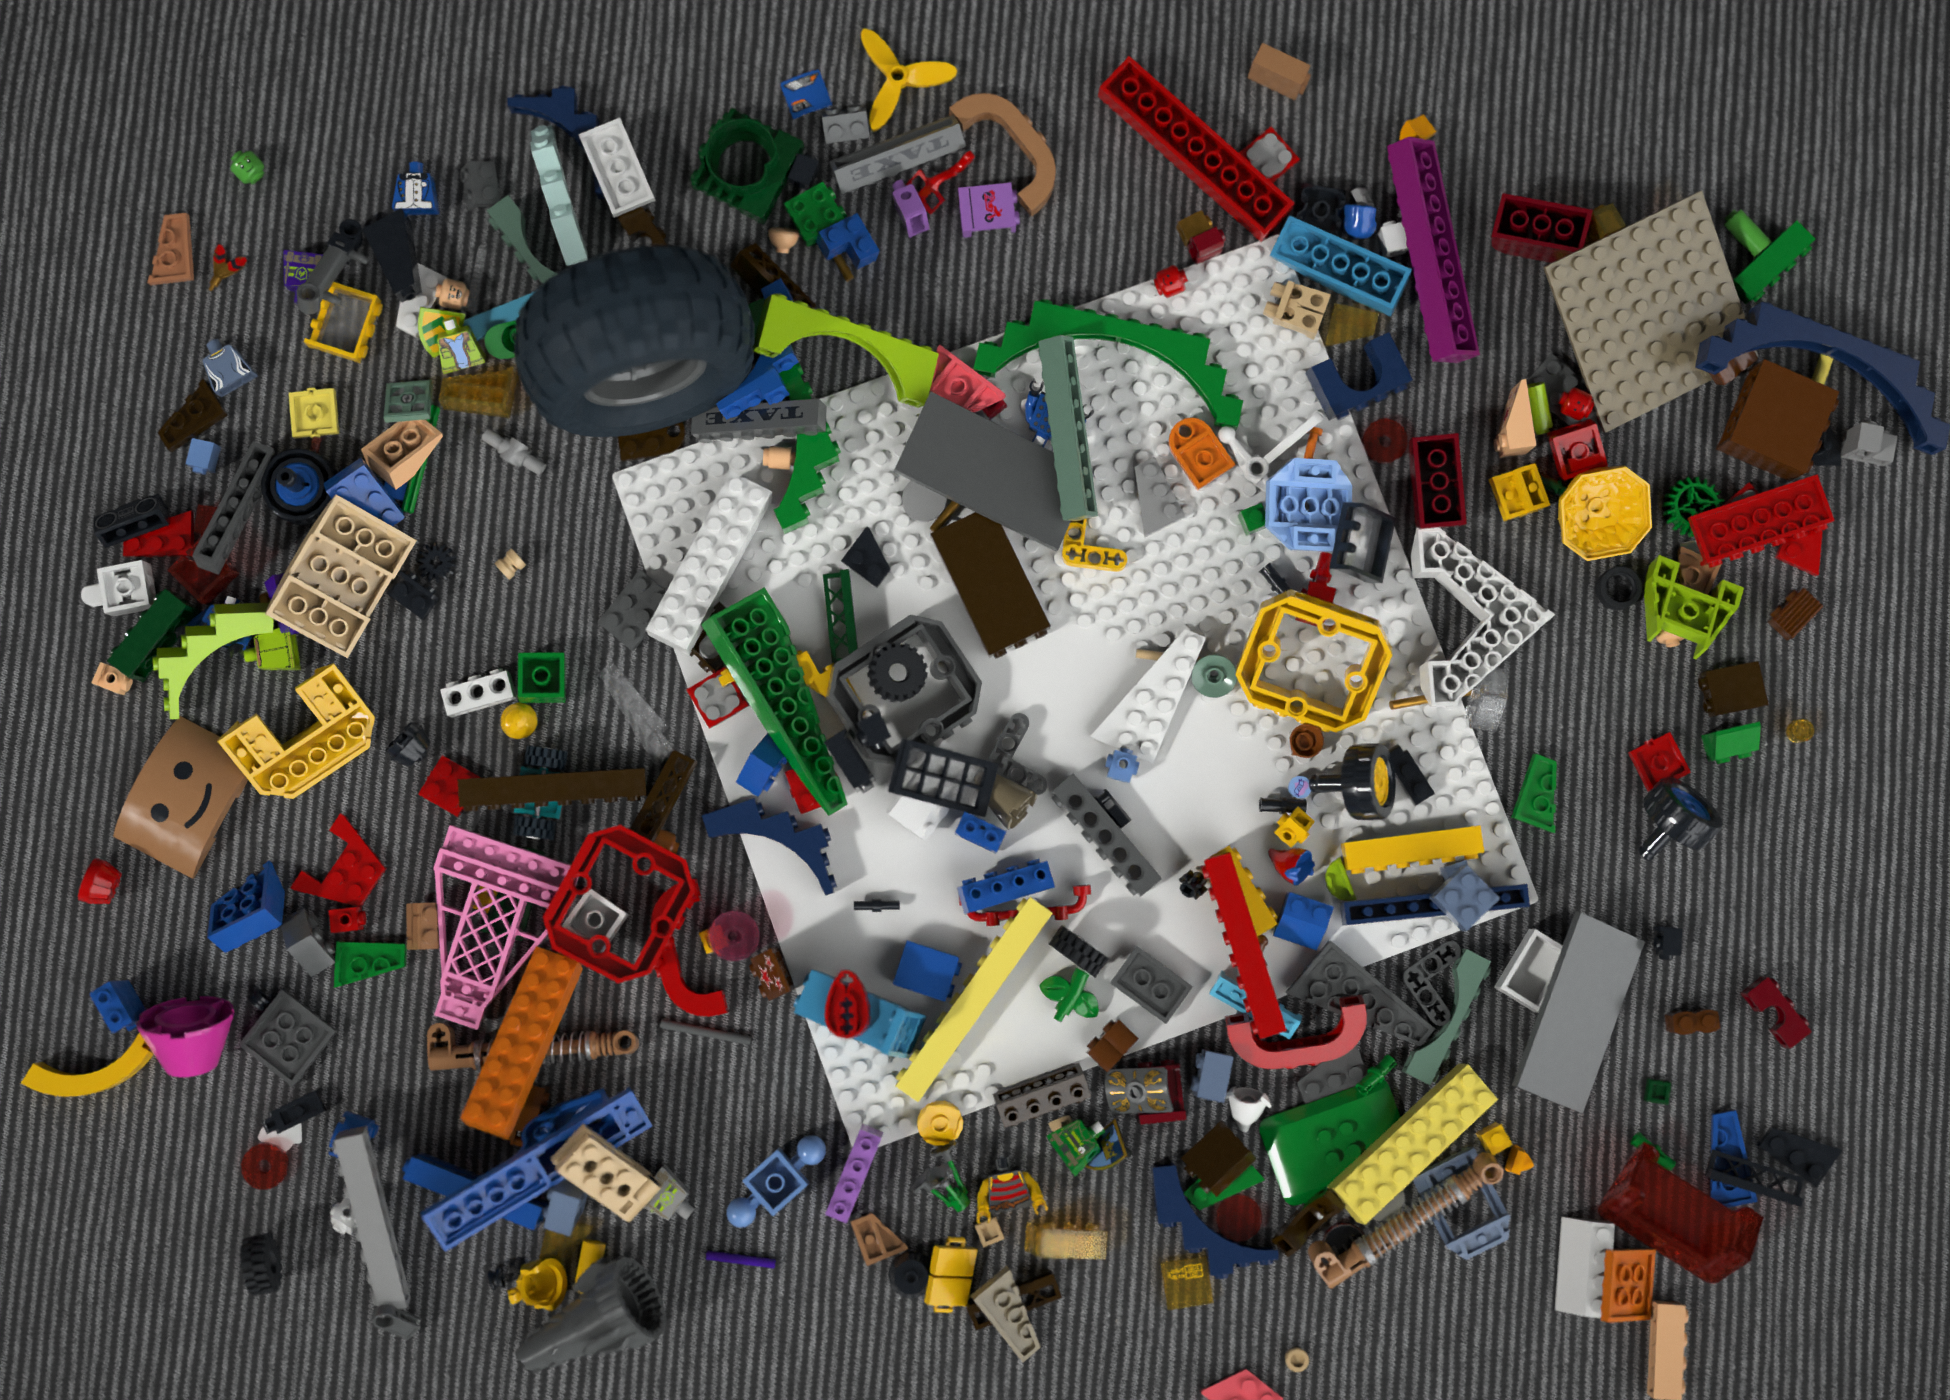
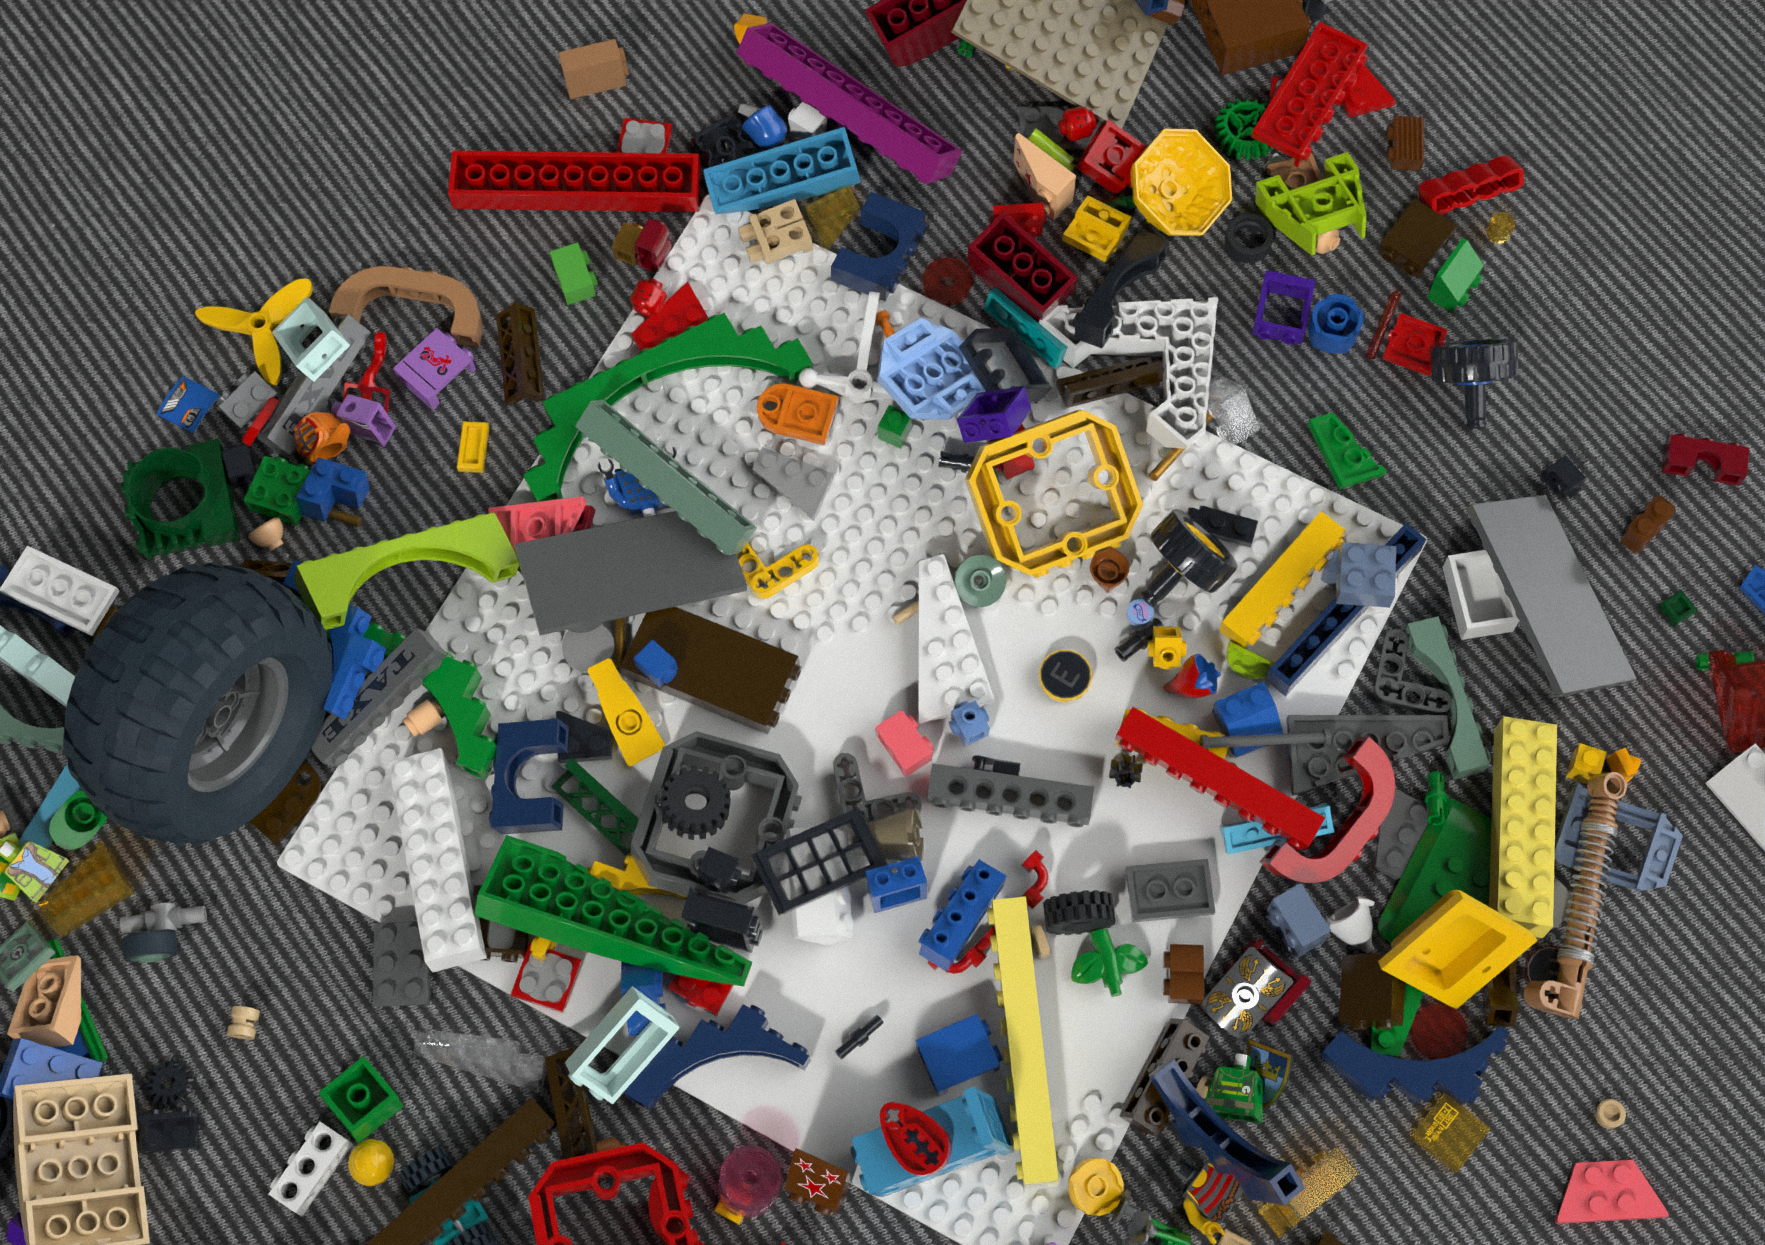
camera: 35 degrees left, 15 degrees down
(490, 464) = (149, 946): none -> black wheel
(725, 800) = (634, 1058): none -> light aqua piece
(820, 528) = (515, 745): none -> dark blue arch
(840, 152) = (260, 421): none -> red tile
(870, 198) = (320, 436): none -> orange piece
(908, 567) = (625, 714): none -> yellow piece
(910, 103) = (291, 336): none -> light aqua piece
(953, 554) = (656, 664): none -> blue brick
(967, 288) = (473, 447): none -> yellow tile
(1034, 1175) = (1199, 1126): none -> dark blue arch
(1039, 945) = (1040, 943): none -> tan tile
(1055, 248) = (524, 352): none -> dark brown fence
(1069, 742) = (904, 742): none -> coral brick
(1136, 218) = (573, 274): none -> bright green brick
(1178, 311) = (675, 316): none -> red wing
(1212, 786) = (1065, 675): none -> black tile
(1290, 1183) = (1456, 948): none -> yellow piece
(1298, 944) = (1266, 739): none -> dark grey bar
(1323, 562) = (994, 419): none -> dark purple window
(1405, 522) = (1028, 329): none -> teal tile
(1424, 613) = (1109, 381): none -> dark brown fence
(1473, 443) = (1027, 216): none -> red plate
(1531, 541) = (1141, 258): none -> black arch
(1612, 646) = (1288, 286): none -> dark purple window
(1630, 703) = (1335, 324): none -> blue brick
(1647, 731) = (1383, 325): none -> clear red piece
(1808, 683) = (1476, 183): none -> red brick

